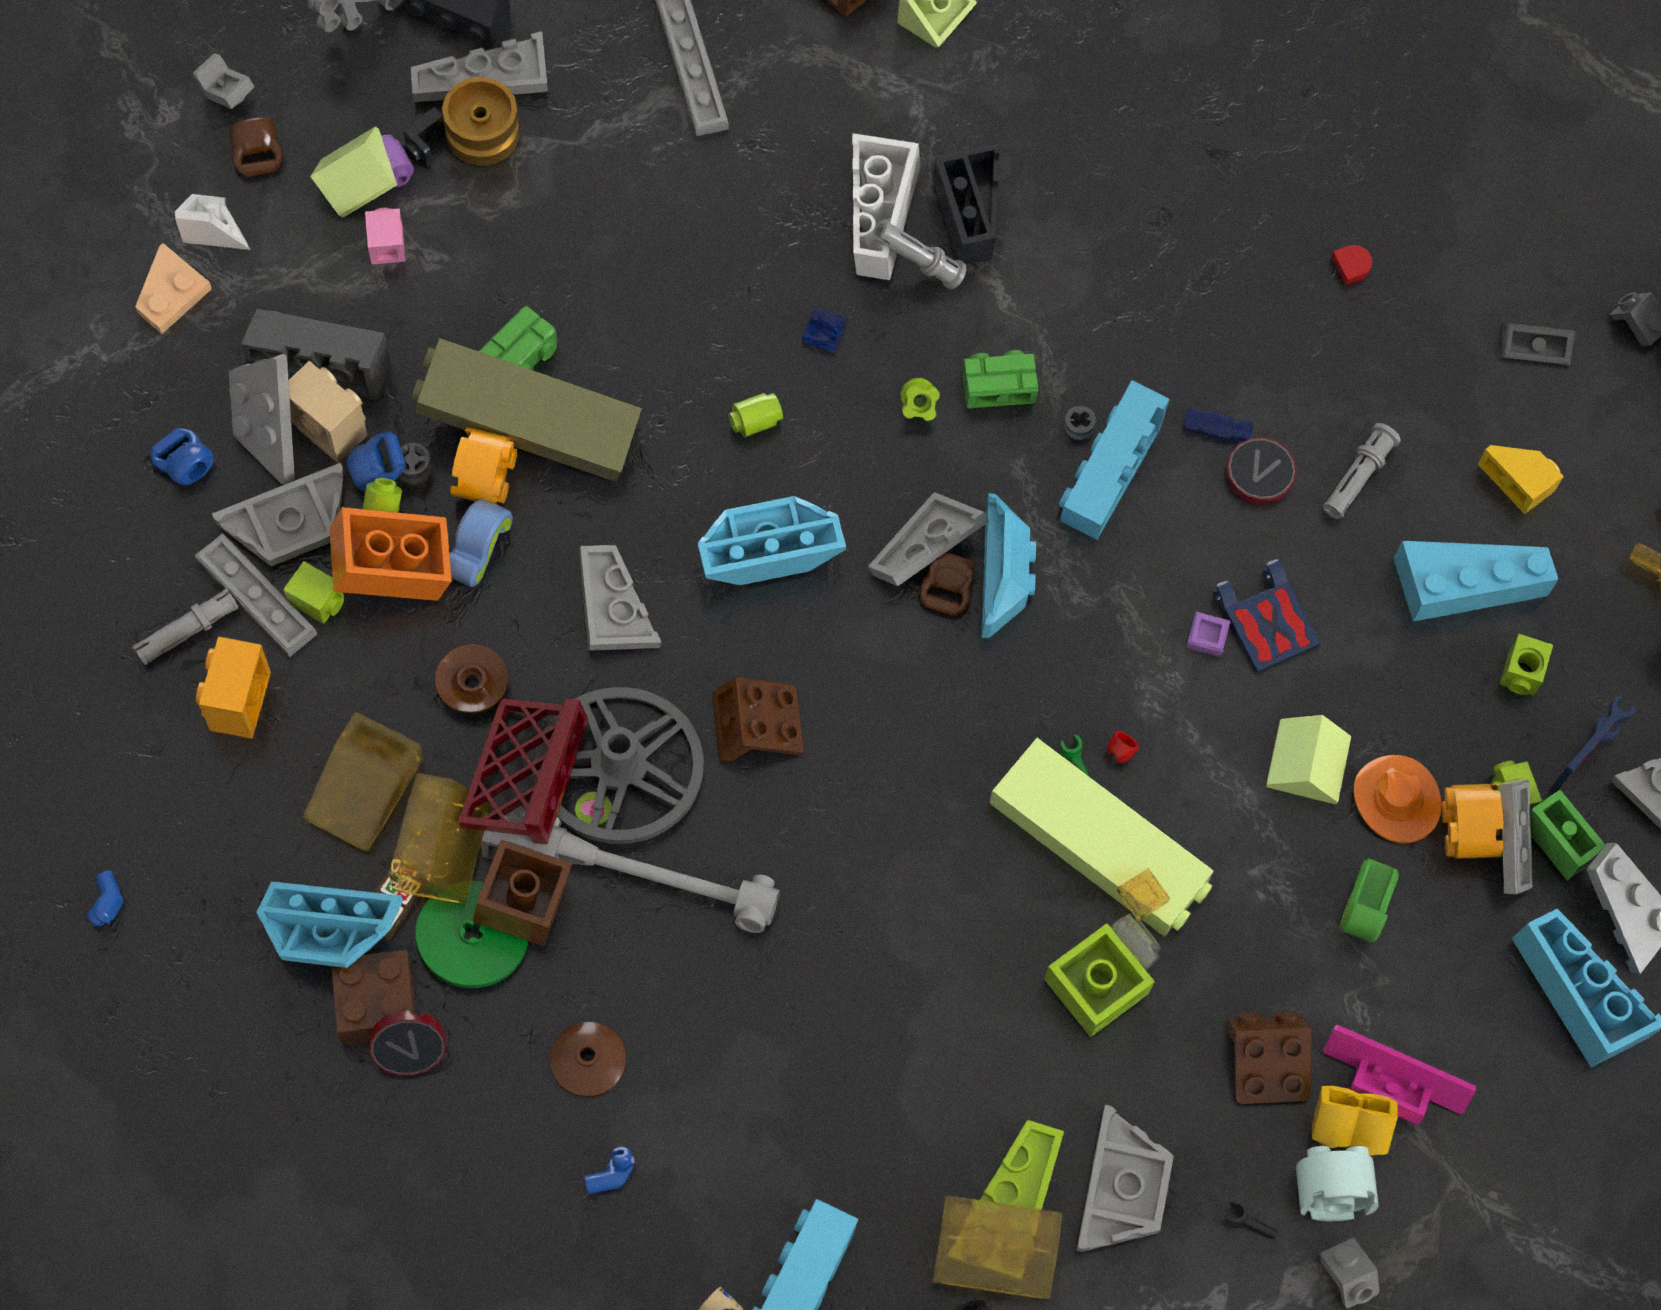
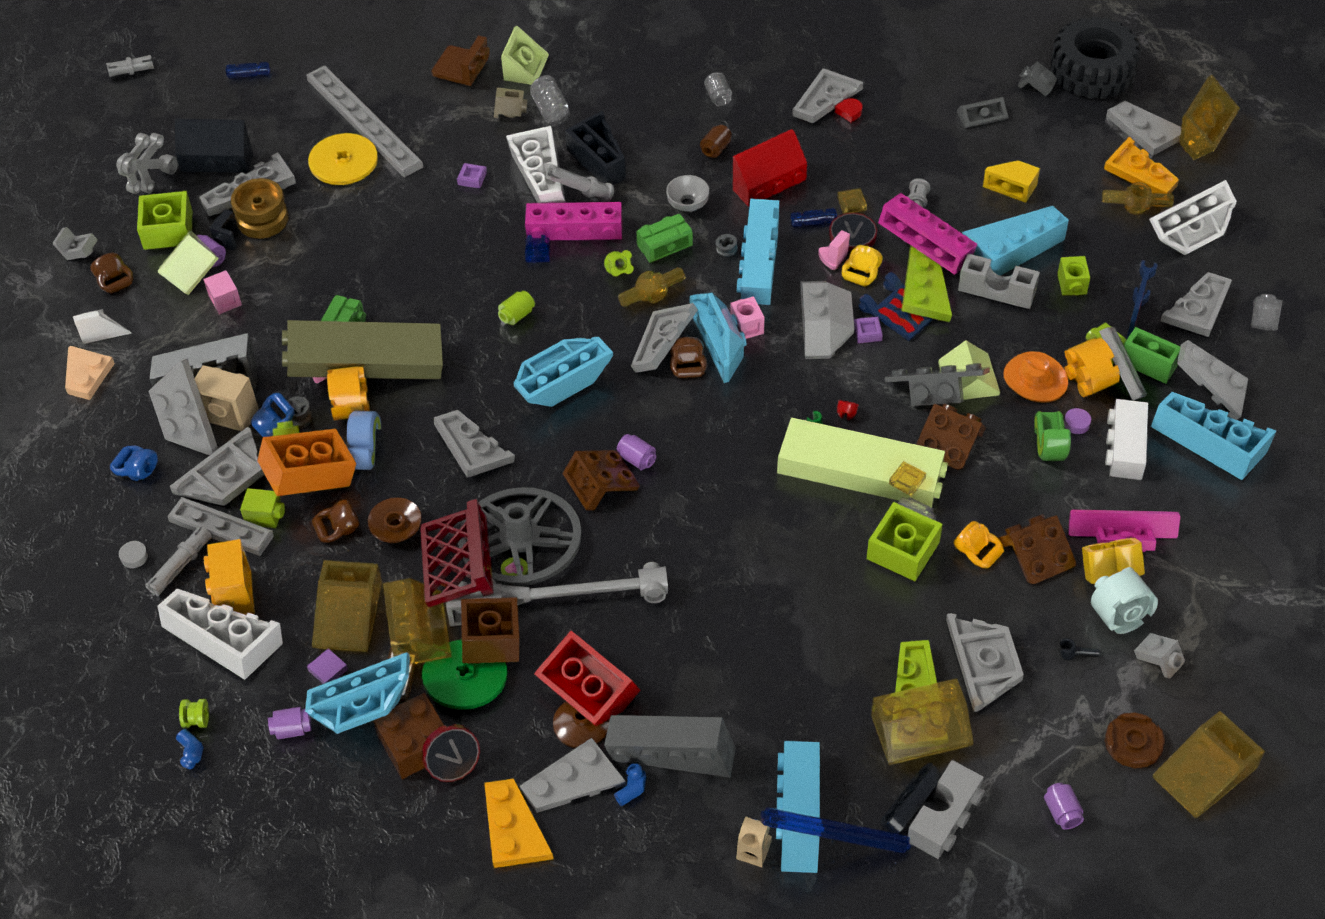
camera: 15 degrees left, 15 degrees down
(126, 854) = (194, 713): none -> lime wheel
(134, 593) = (133, 554): none -> light grey tile
(202, 763) = (219, 632): none -> white wedge
(234, 916) = (289, 723): none -> medium lavender brick
(310, 854) = (327, 667): none -> medium lavender tile
(350, 91) = (164, 219): none -> lime brick
(409, 648) = (342, 518): none -> reddish brown piece
(445, 1168) = (512, 827): none -> light orange wing
(545, 1131) = (573, 776): none -> light grey wing
(613, 1011) = (587, 680): none -> red slope
(614, 95) = (343, 159): none -> yellow piece
(679, 1141) = (672, 743): none -> dark grey wedge
(786, 171) = (471, 175): none -> medium lavender tile
(818, 702) = (636, 451): none -> medium lavender brick
(885, 71) = (509, 103): none -> dark tan brick
(890, 305) = (569, 220): none -> dark pink brick
(941, 88) = (549, 100): none -> clear piece
(948, 452) = (651, 287): none -> clear yellow axle
(1049, 566) = (748, 317): none -> bright pink brick
(1064, 308) = (687, 188): none -> light grey piece
(1140, 247) = (716, 141): none -> reddish brown brick
(1159, 592) = (826, 318): none -> light grey wedge
(1183, 158) = (718, 89): none -> clear brick
(1189, 328) = (769, 168): none -> red slope
(1192, 1011) = (974, 539): none -> light orange piece
(1218, 496) = (836, 252): none -> bright pink tile
(1237, 843) = (951, 433): none -> reddish brown bracket
(1252, 763) = (936, 387): none -> dark grey bracket
(1253, 524) = (863, 259): none -> yellow piece
(1283, 418) = (852, 201): none -> clear yellow tile
(1317, 596) = (925, 288): none -> lime wing
(1327, 226) = (824, 94): none -> light grey wing
(1353, 523) = (926, 233): none -> dark pink brick
(1418, 889) = (1077, 421): none -> medium lavender tile
(1433, 653) = (980, 280): none -> light grey arch
(1468, 946) = (1127, 439): none -> white brick

